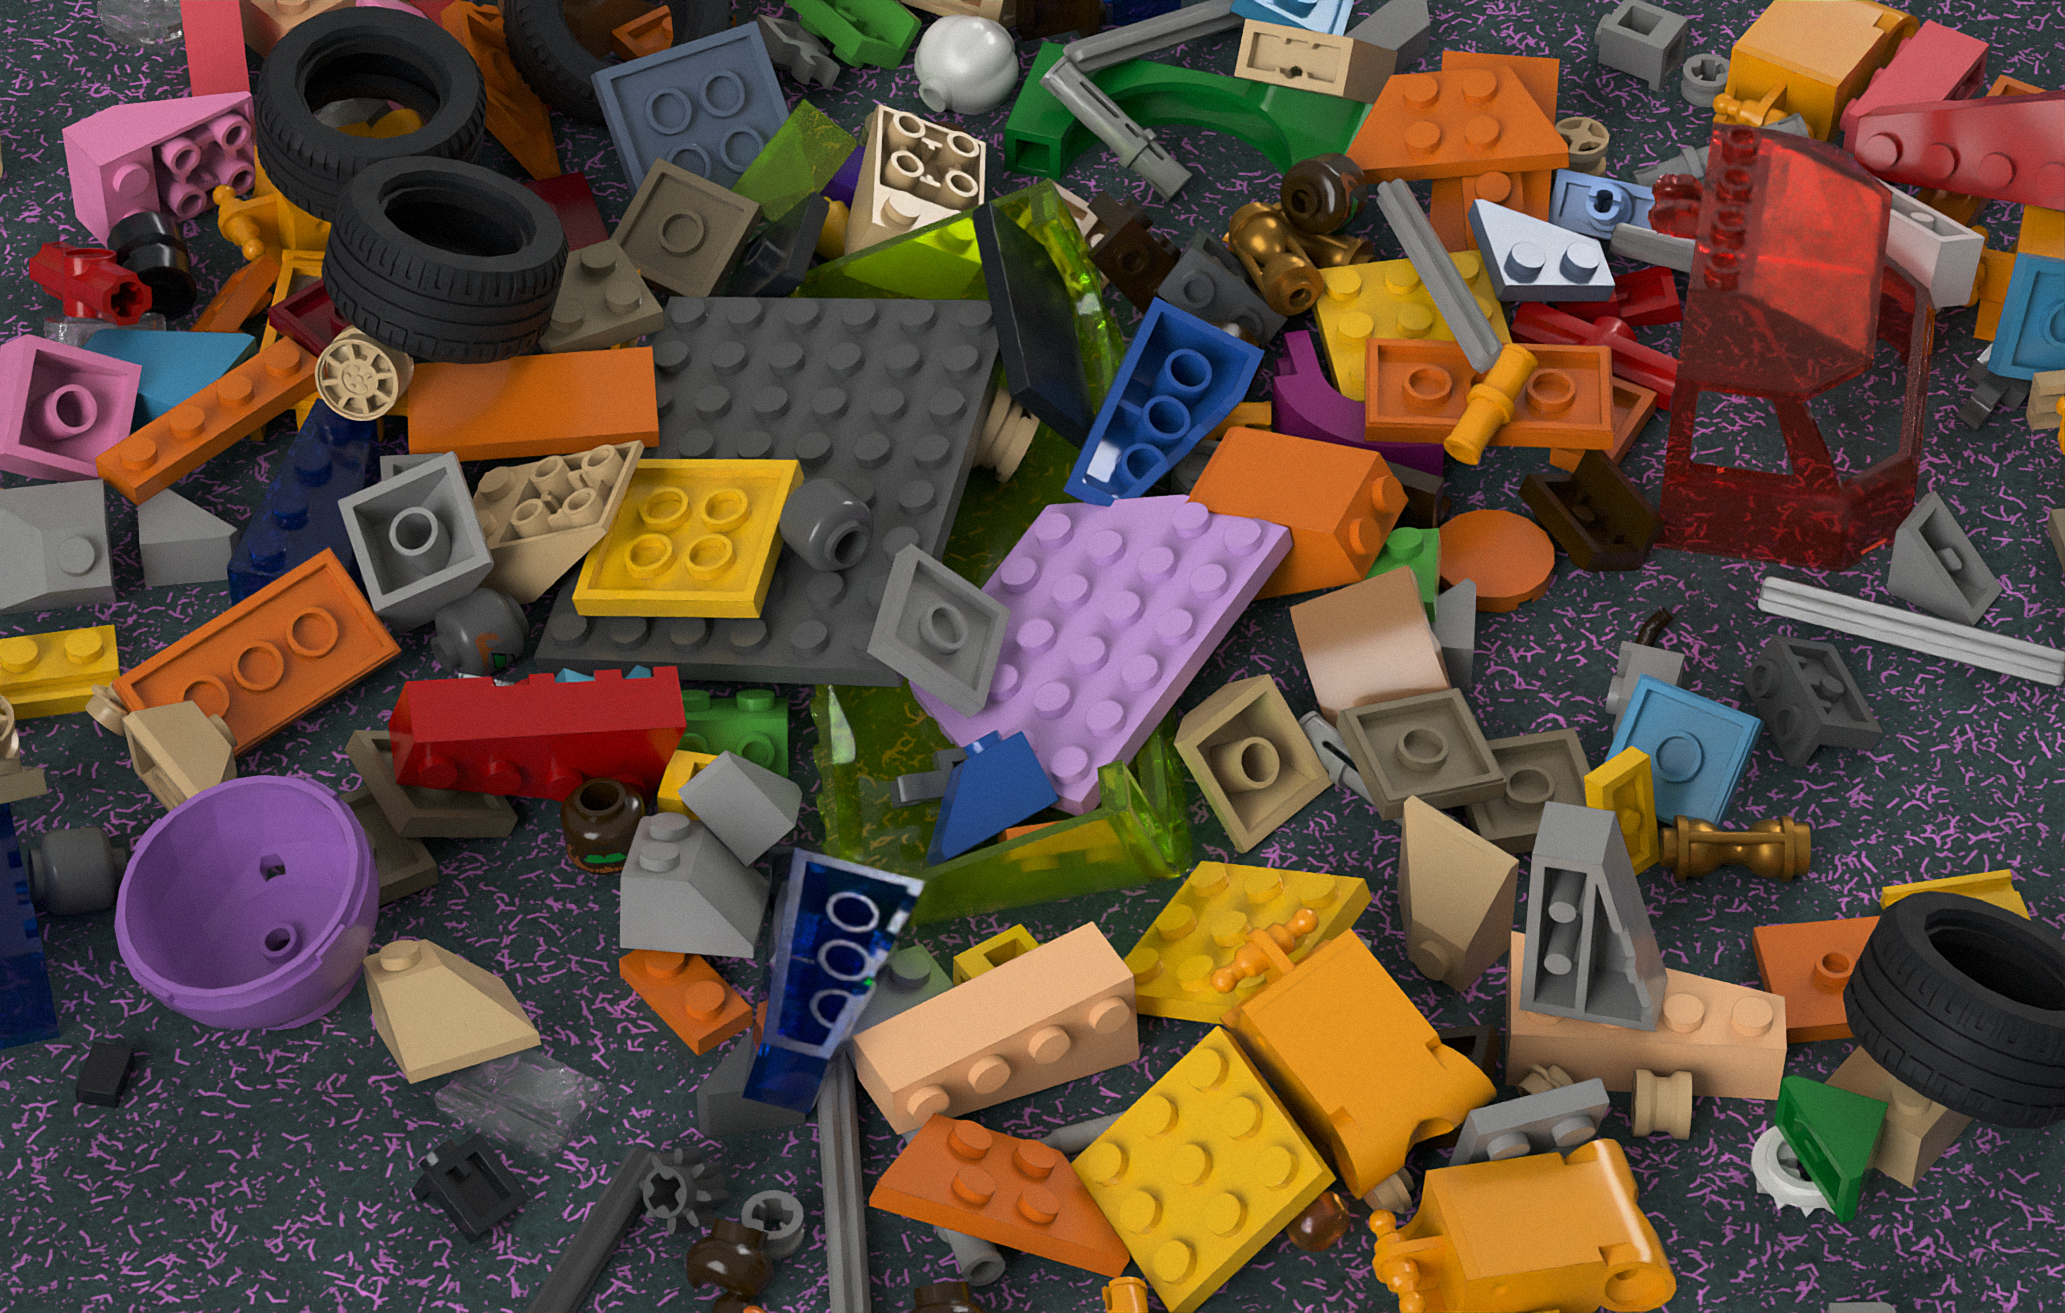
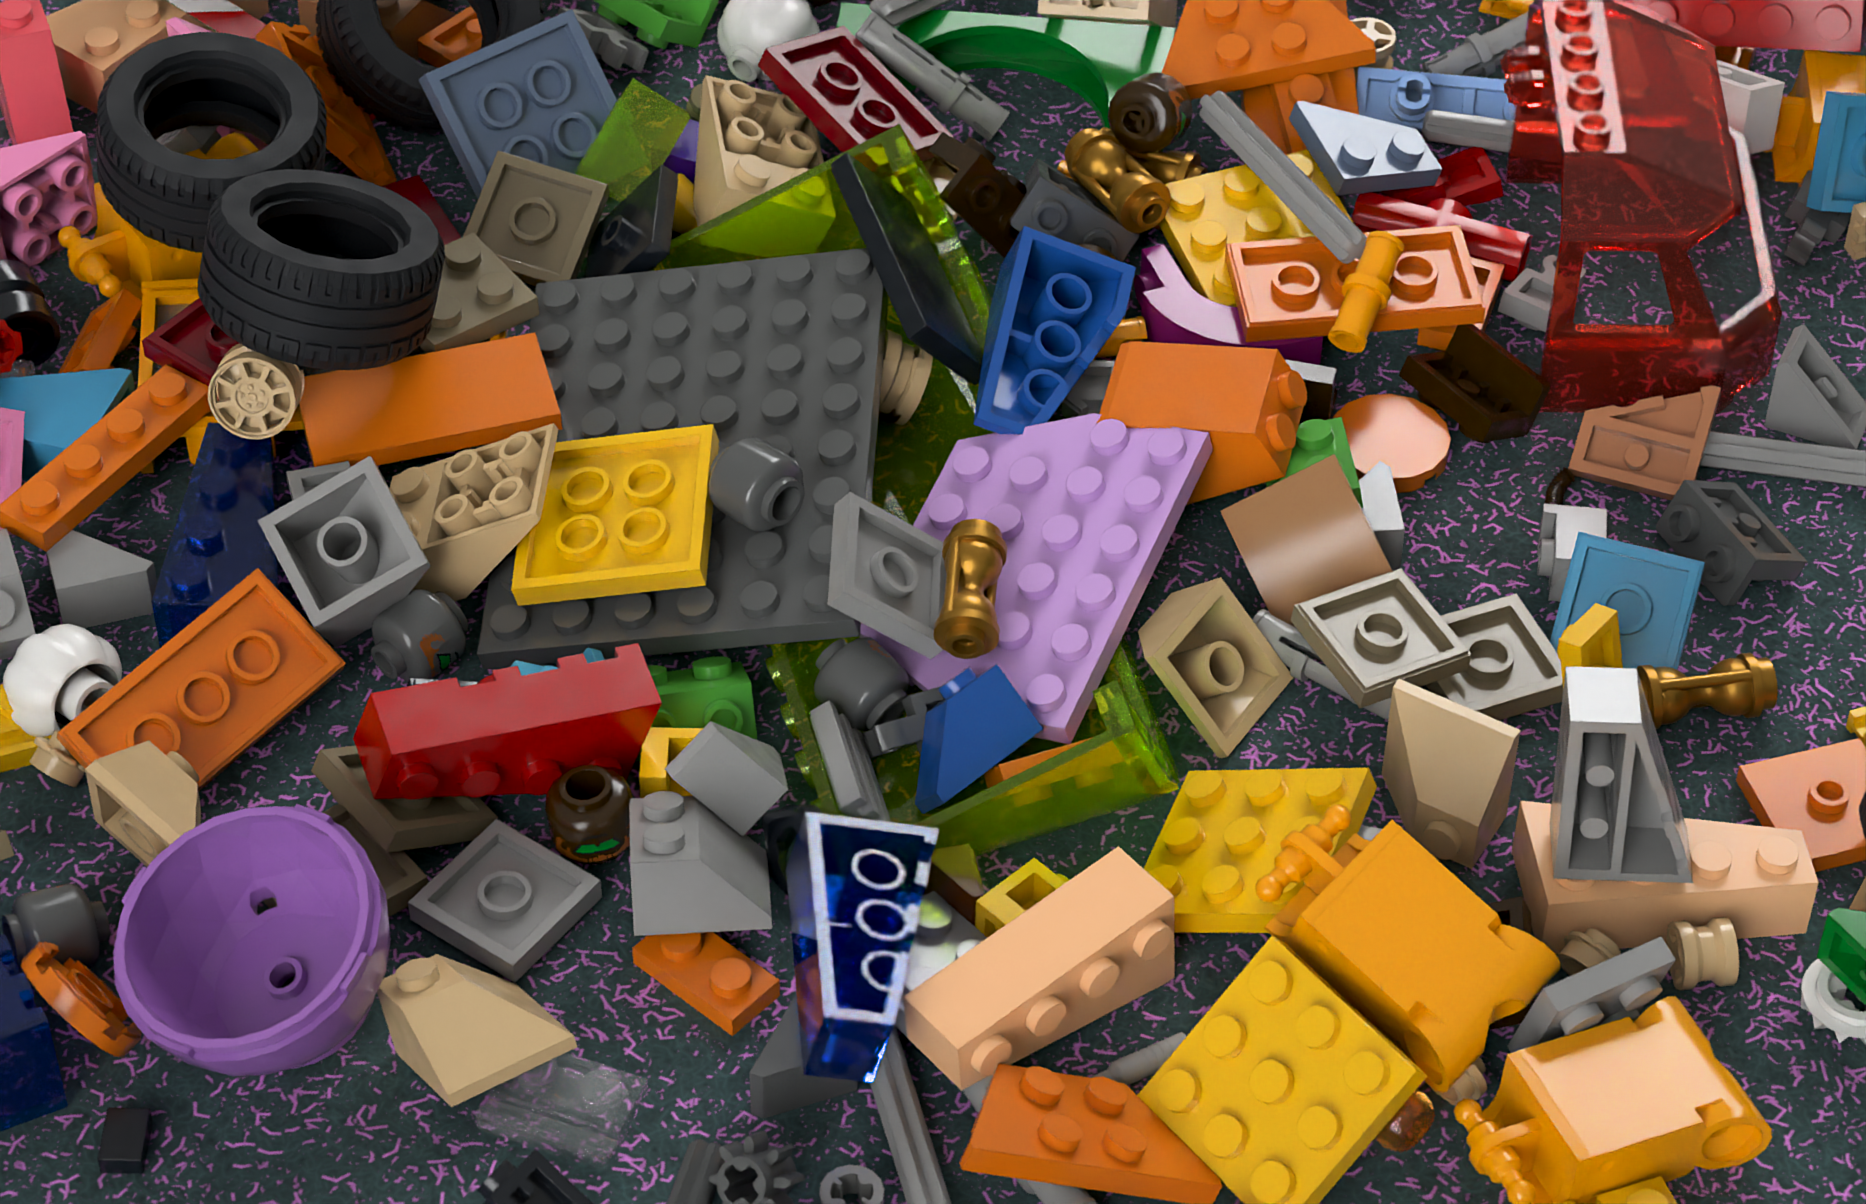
camera: 10 degrees left, 0 degrees up
(83, 936) = (81, 999): none -> orange tile
(128, 625) = (61, 673): none -> white plant
(508, 898) = (505, 900): none -> light grey plate
(866, 812) = (848, 765): none -> light grey tile
(896, 733) = (861, 682): none -> dark grey head
(940, 931) = (956, 879): none -> slope
(1023, 137) = (848, 91): none -> dark red plate
(1025, 630) = (972, 564): none -> pearl gold piece
(1709, 427) = (1530, 295): none -> light grey plate
(1751, 591) = (1646, 444): none -> nougat wing

